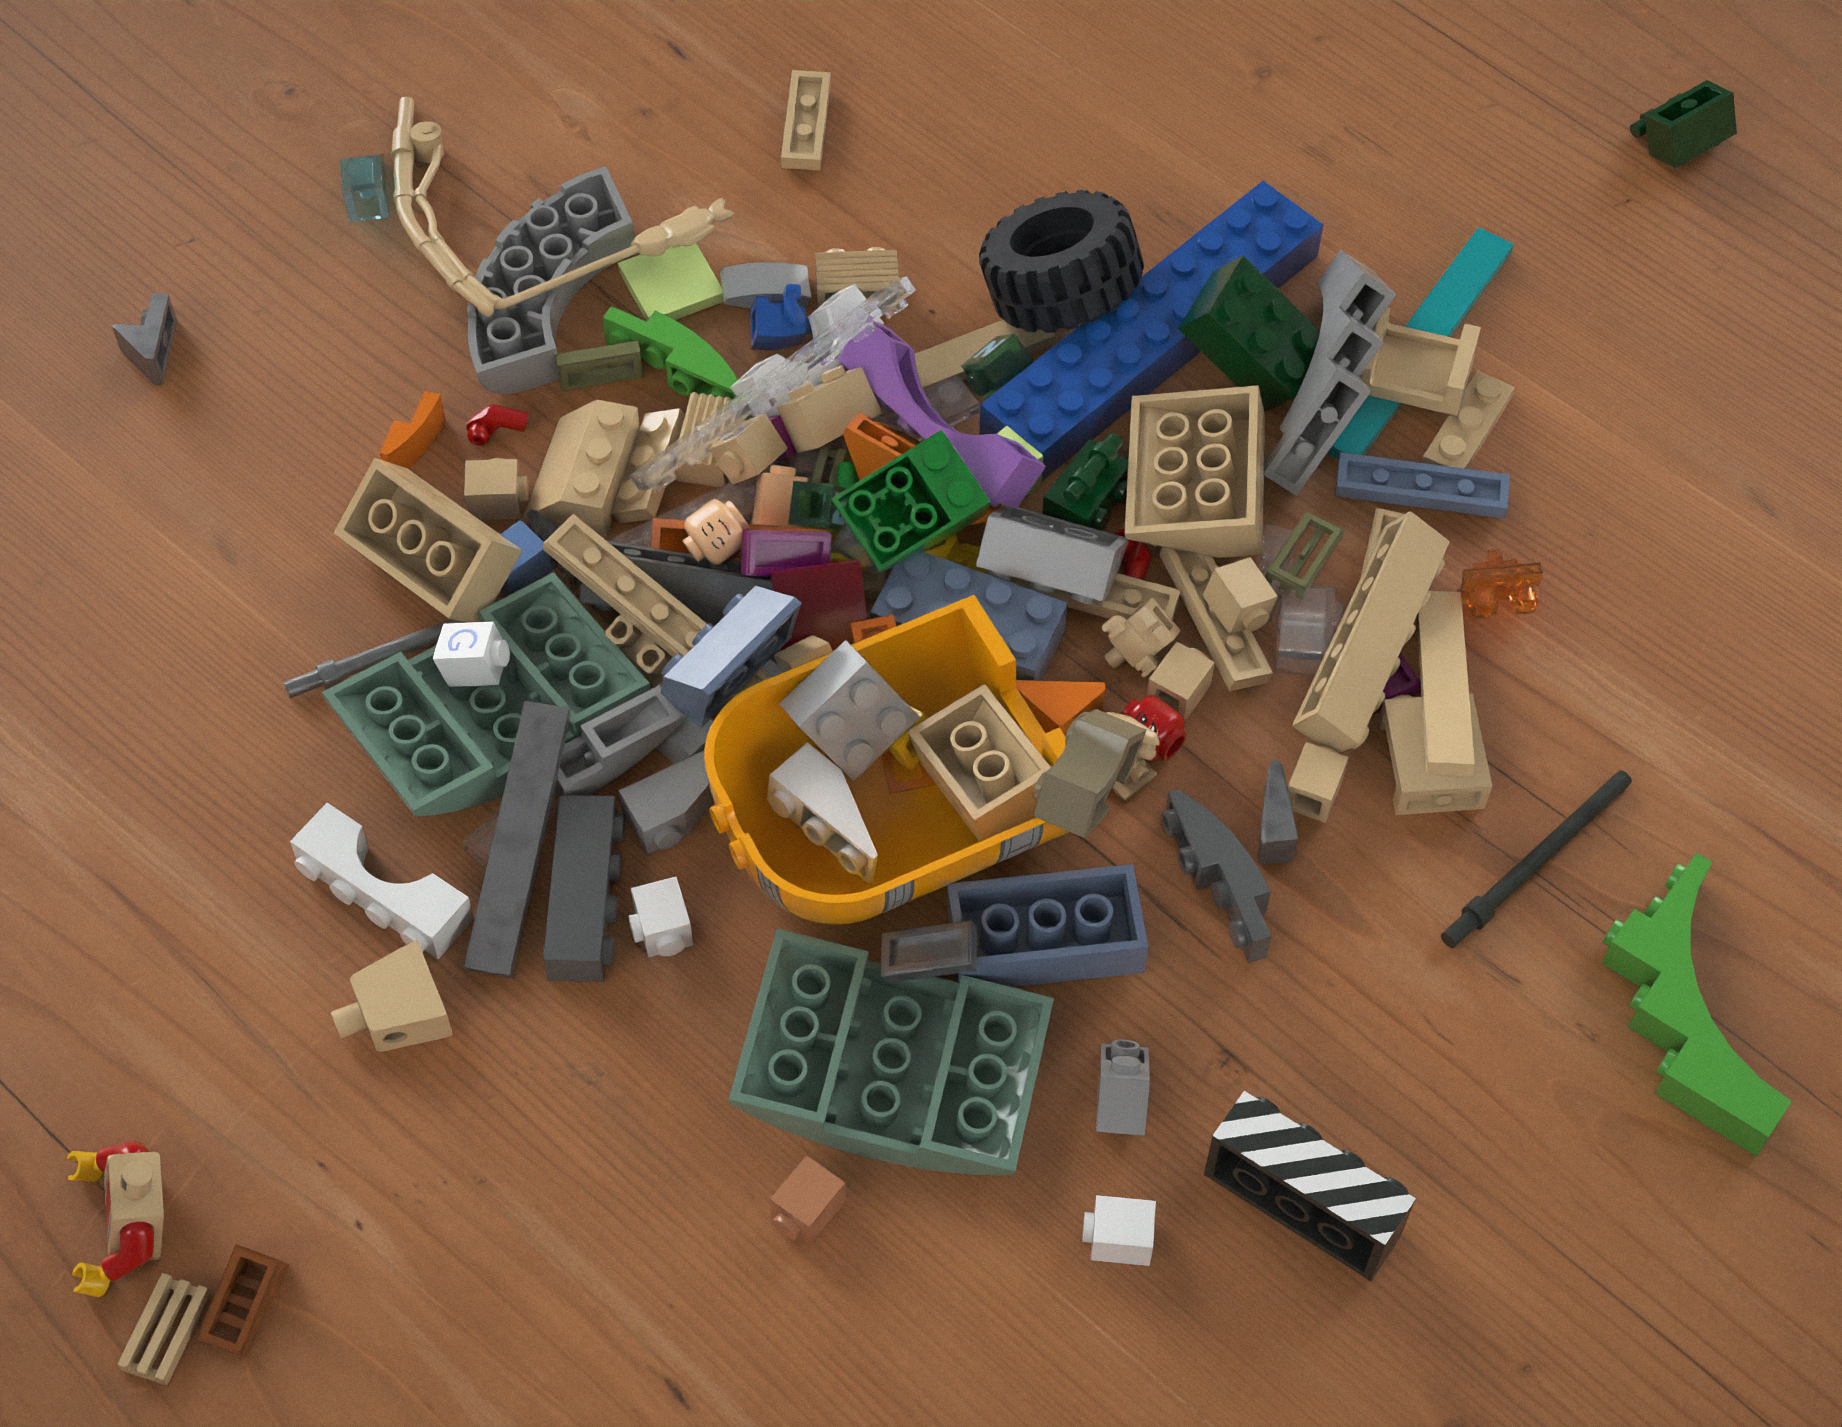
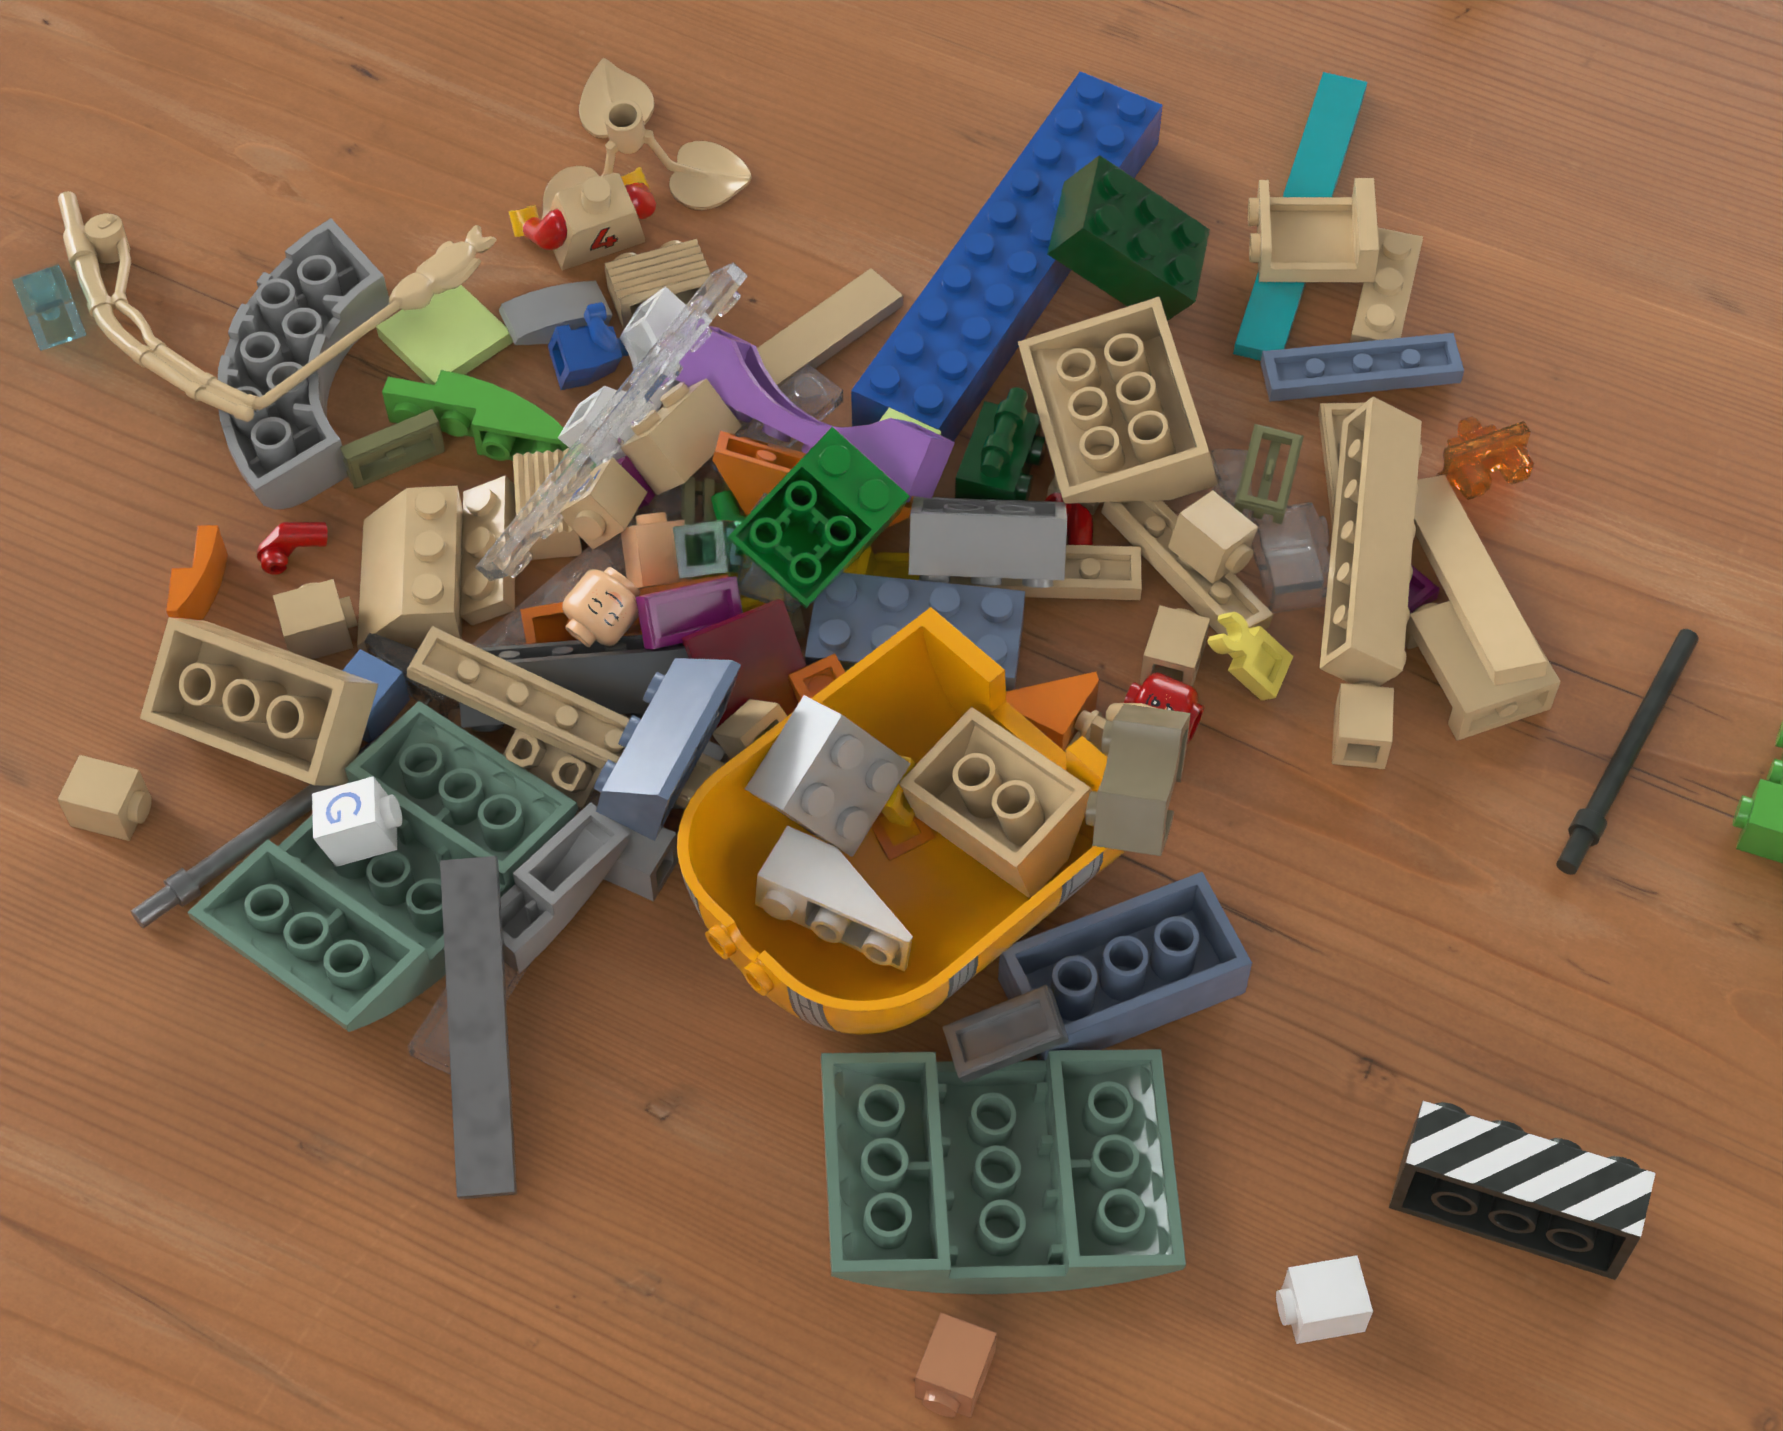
camera: 15 degrees left, 0 degrees up
(289, 589) = (105, 798): none -> tan brick
(395, 1002) = (389, 1261): tan torso -> none
(422, 910) = (389, 1143): white arch -> none
(582, 889) = (569, 1066): dark grey brick -> none
(660, 918) = (673, 1076): white brick -> none
(667, 803) = (641, 934): light grey slope -> none
(806, 120) = (541, 117): tan plate -> none
(818, 213) = (590, 218): none -> tan torso
(866, 126) = (618, 108): none -> tan plant
(996, 365) = (851, 342): clear green brick -> none
(1061, 261) = (891, 209): black tyre -> none
(1123, 1088) = (1271, 1133): light grey slope -> none
(1140, 637) = (1116, 611): tan piece -> none
(1221, 861) = (1285, 839): dark grey slope -> none
(1245, 703) = (1257, 657): none -> light yellow plate
(1278, 828) = (1337, 783): flat silver slope -> none
(1332, 386) = (1234, 283): light grey arch -> none

